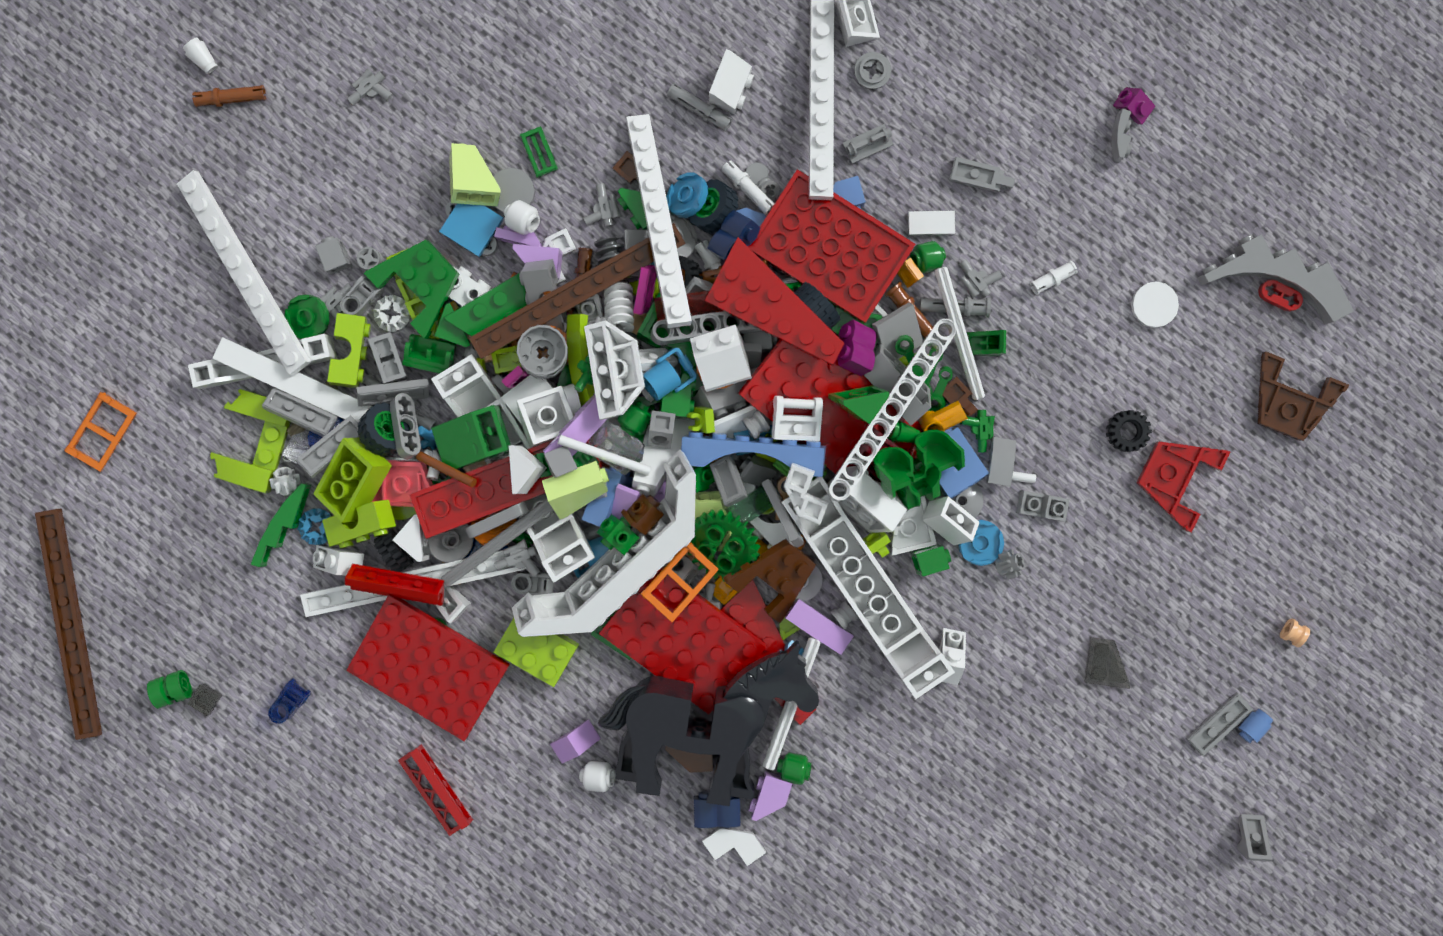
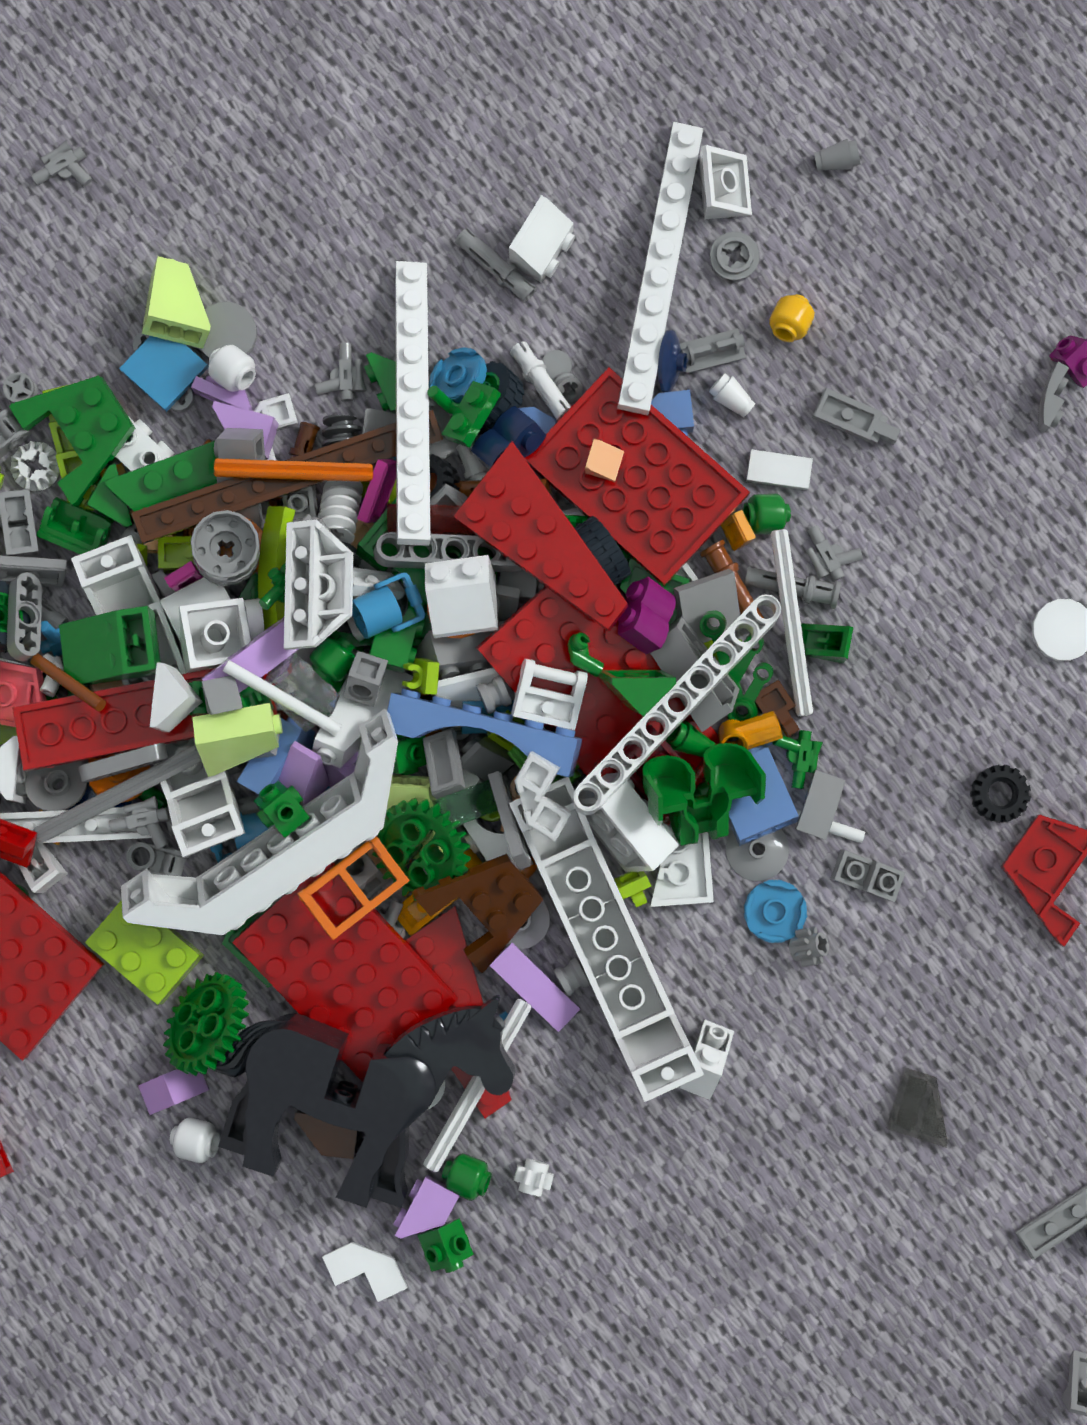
camera: 10 degrees right, 5 degrees down
(546, 170) = (277, 312): green tile -> none
(581, 285) = (293, 470): none -> orange axle
(591, 695) = (206, 1024): none -> green gear
(626, 168) = (383, 328): reddish brown plate -> none
(643, 513) = (321, 786): reddish brown brick -> none
(701, 222) = (469, 414): none -> green plate
(713, 815) = (349, 1220): dark blue brick -> none
(787, 628) = (491, 982): lime tile -> none
(789, 820) = (446, 1246): none -> green brick
(806, 239) = (604, 460): none -> light nougat slope
(814, 386) = (580, 655): none -> green arm
(841, 157) = (670, 361): none -> dark blue dish
(842, 760) = (533, 1177): none -> white gear
(888, 174) = (731, 395): none -> white cone
(922, 109) = (791, 318): none -> yellow head
(930, 560) = (701, 920): green brick -> none
(950, 521) = (736, 872): white brick -> none
(1053, 277) = (931, 570): white pin -> none

